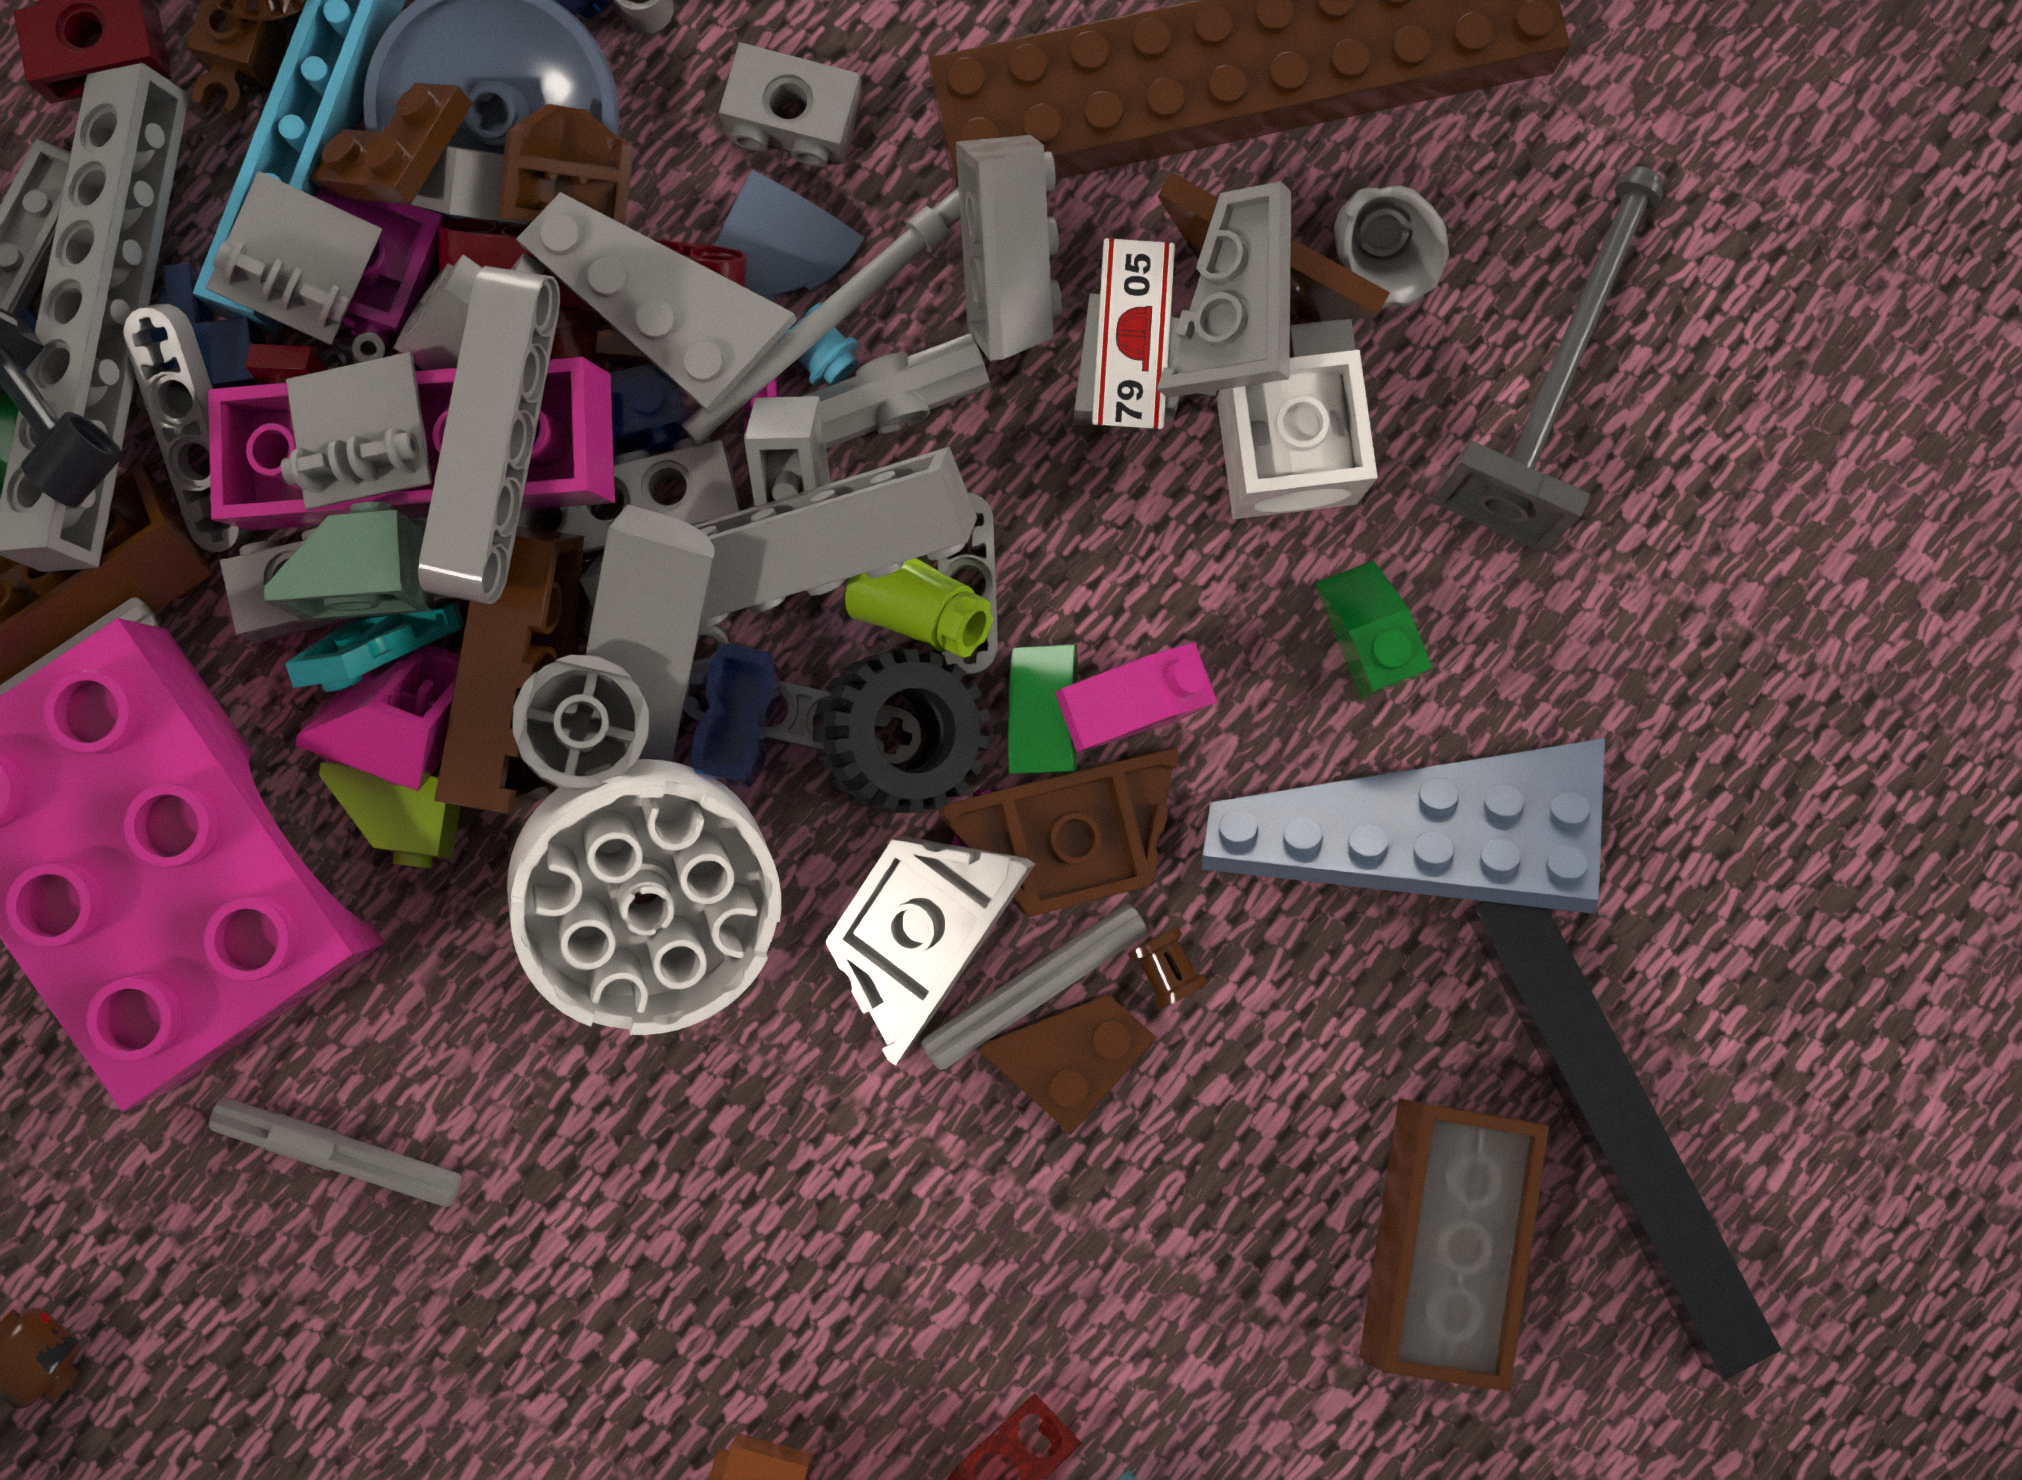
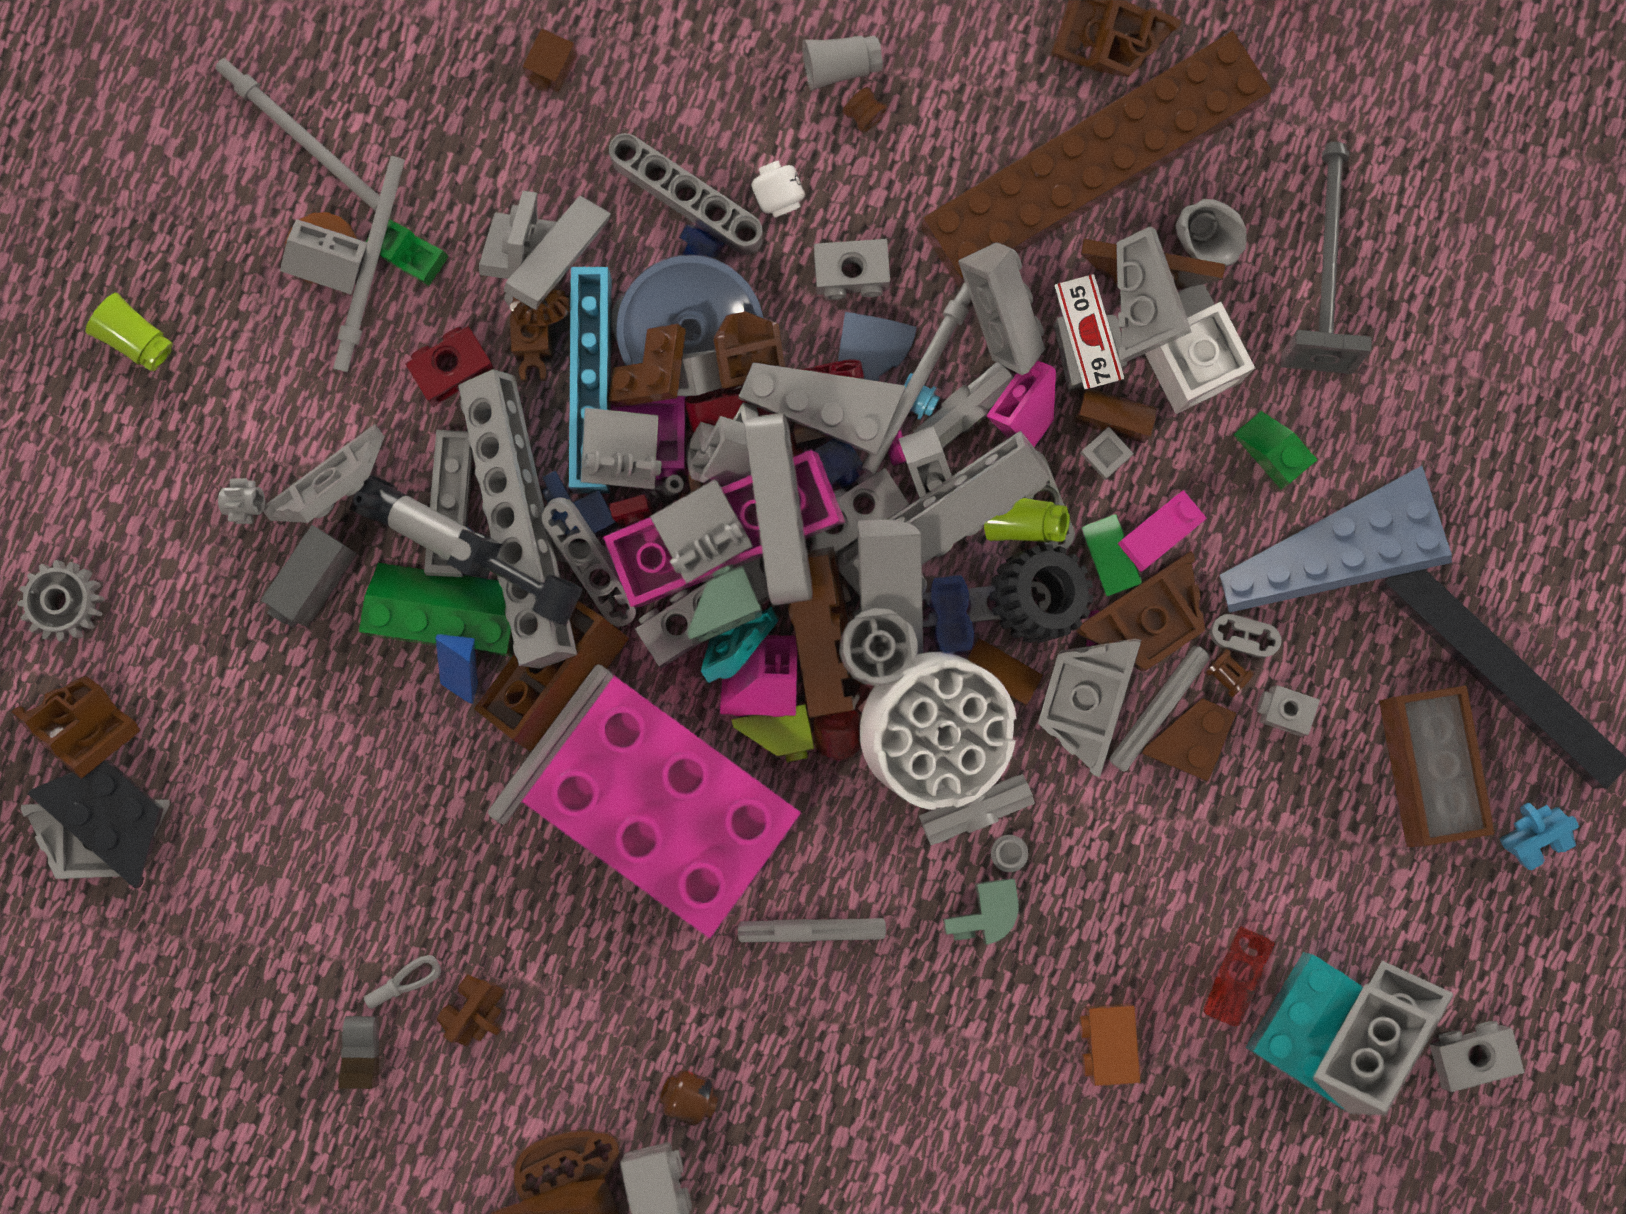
camera: 15 degrees left, 0 degrees up
(483, 845) = (838, 734): none -> clear red head
(643, 1230) = (996, 914): none -> sand green brick
(681, 1055) = (995, 803): none -> light grey piece
(703, 1138) = (1009, 853): none -> light grey plate
(802, 839) = (1014, 675): none -> reddish brown slope
(991, 417) = (1027, 404): none -> dark pink slope
(1094, 541) = (1106, 453): none -> light grey tile
(1132, 485) = (1122, 415): none -> reddish brown brick
(1225, 903) = (1247, 627): none -> light grey beam
(1241, 1062) = (1287, 710): none -> light grey brick
(1587, 1408) = (1538, 830): none -> dark azure hips

